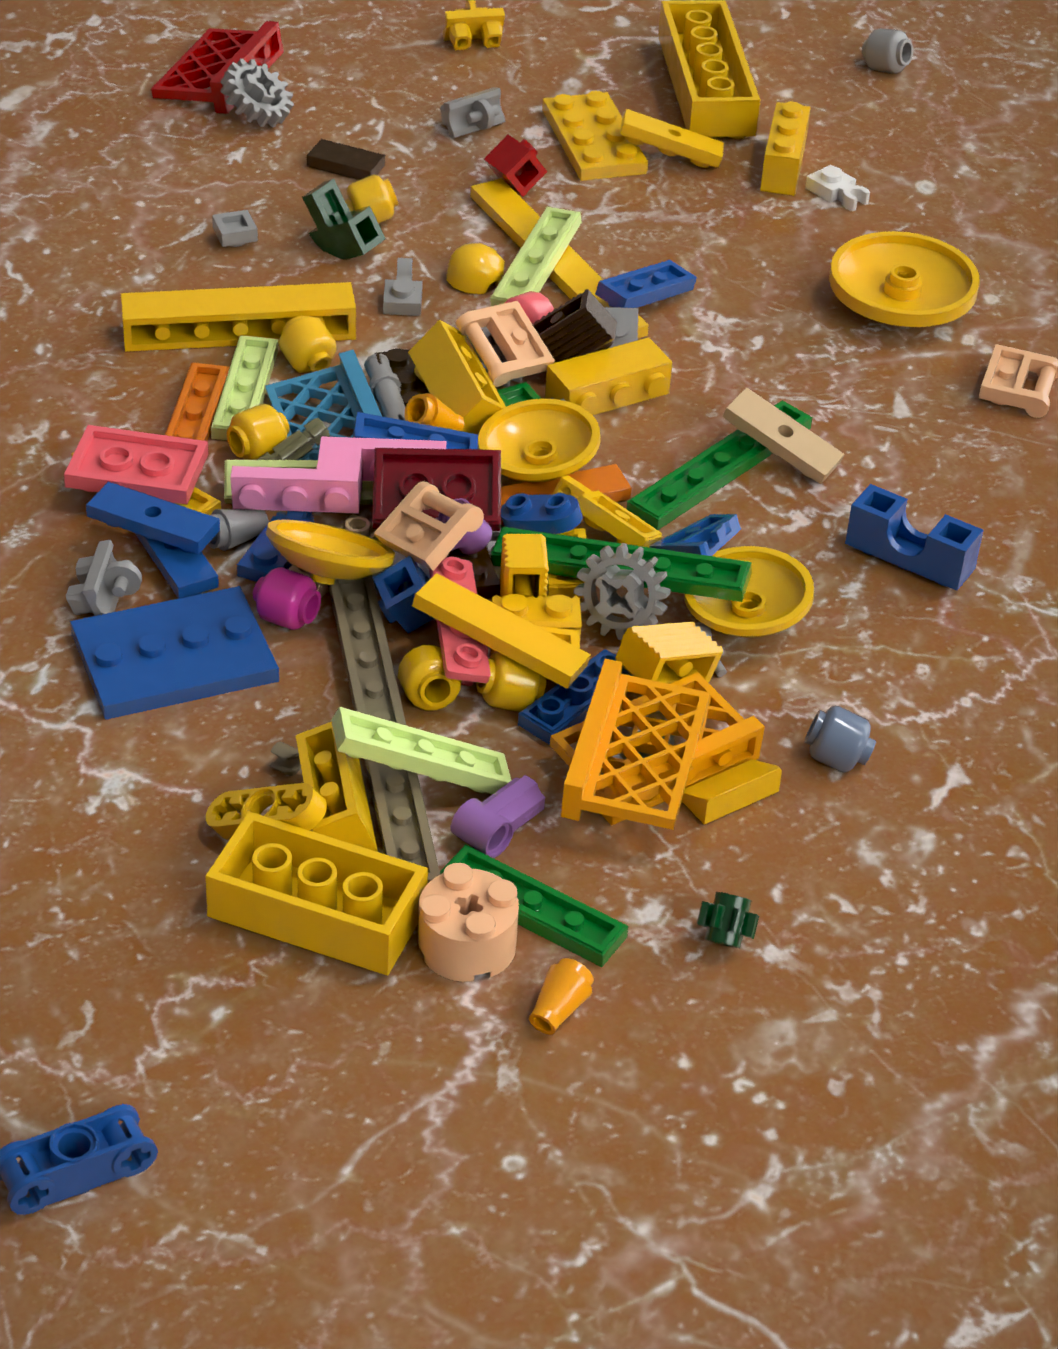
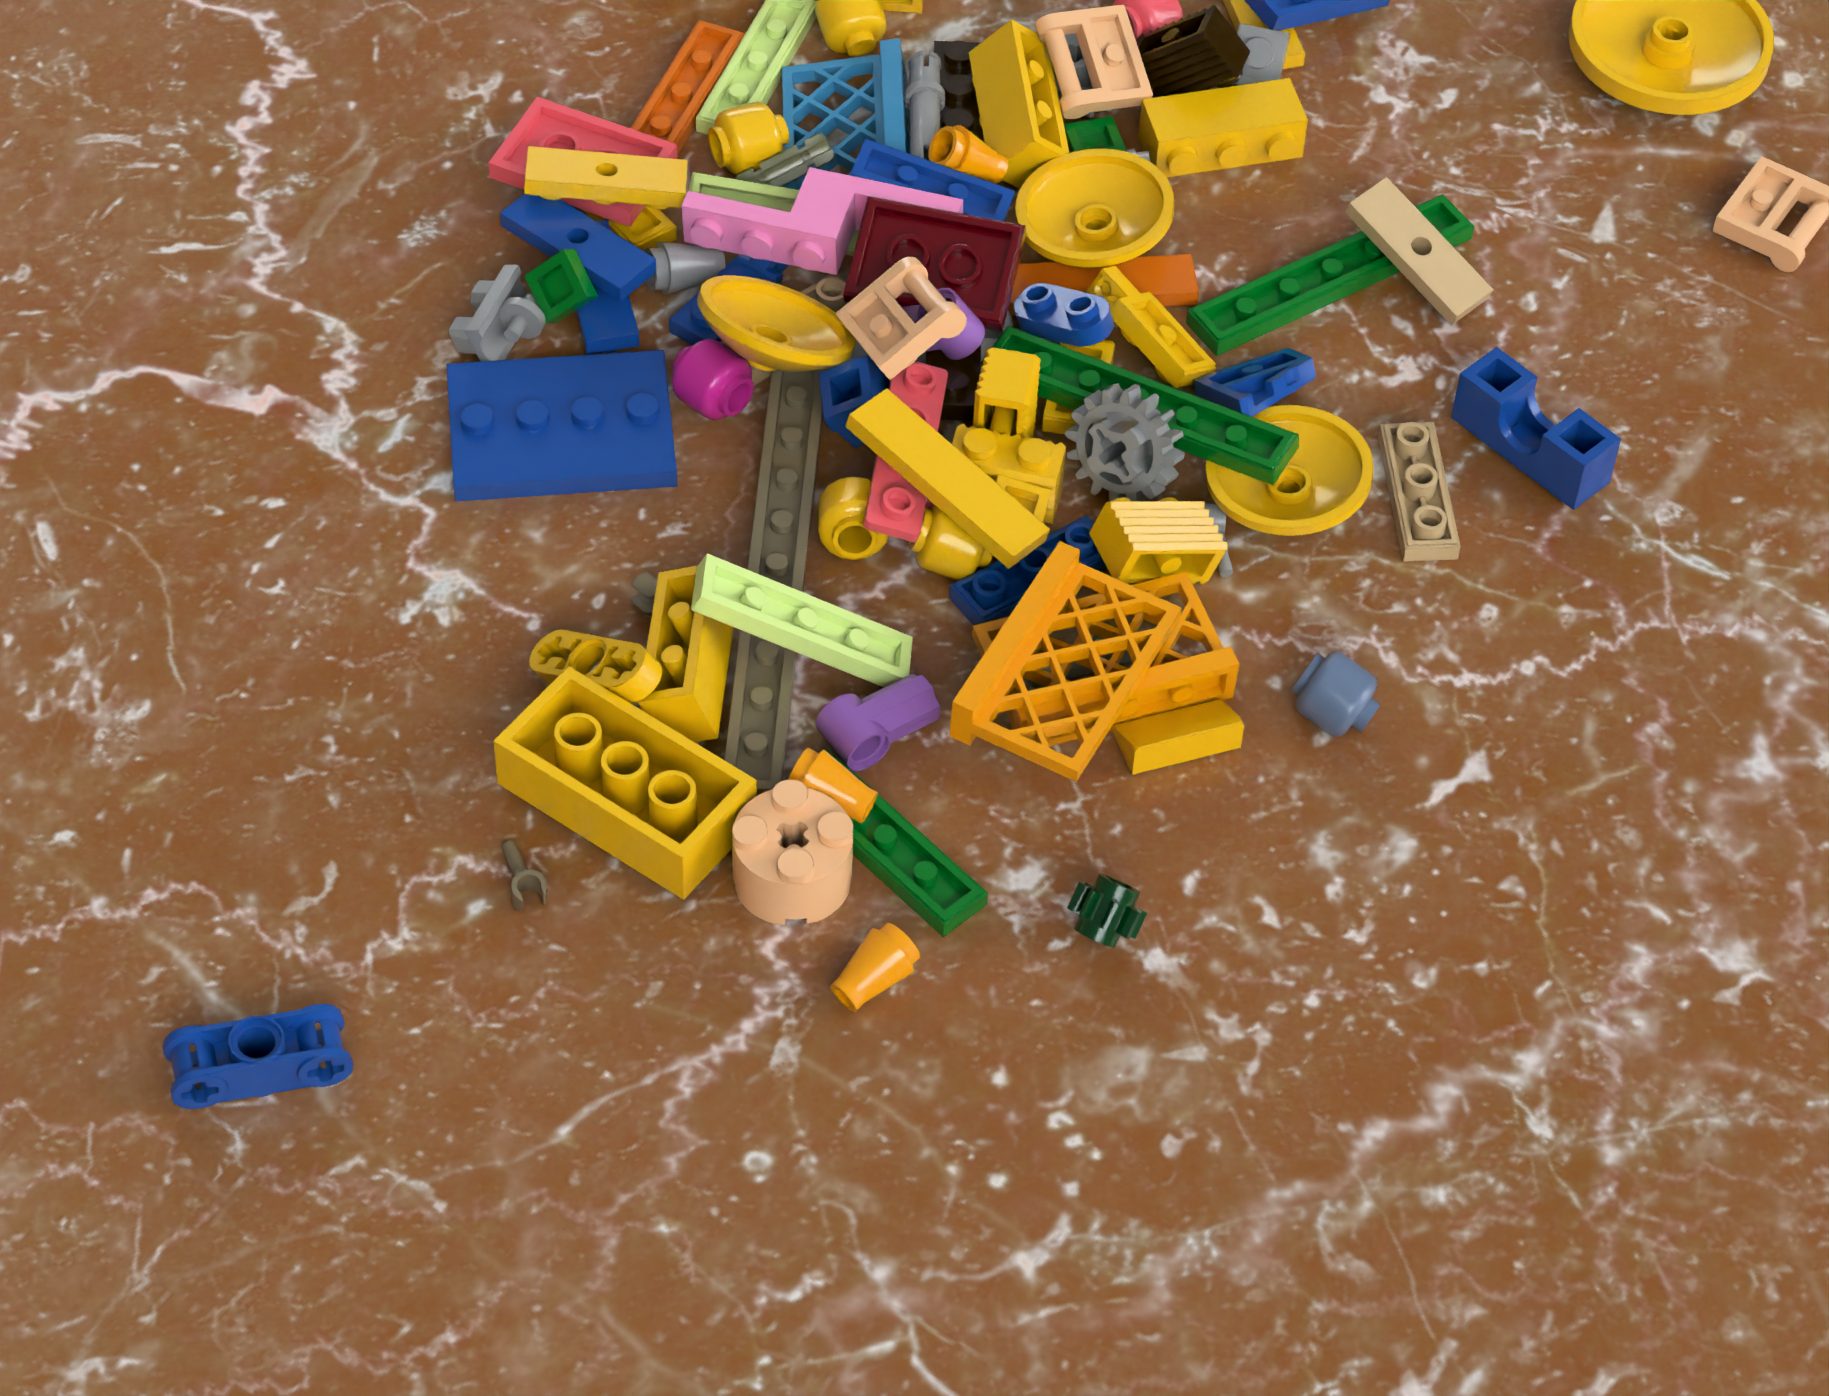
camera: 15 degrees right, 10 degrees up
(149, 548) = (561, 285): none -> green plate
(164, 467) = (605, 177): none -> yellow tile
(253, 983) = (523, 877): none -> dark tan hand
(483, 858) = (830, 777): none -> light orange cone
(843, 597) = (1418, 491): none -> tan tile

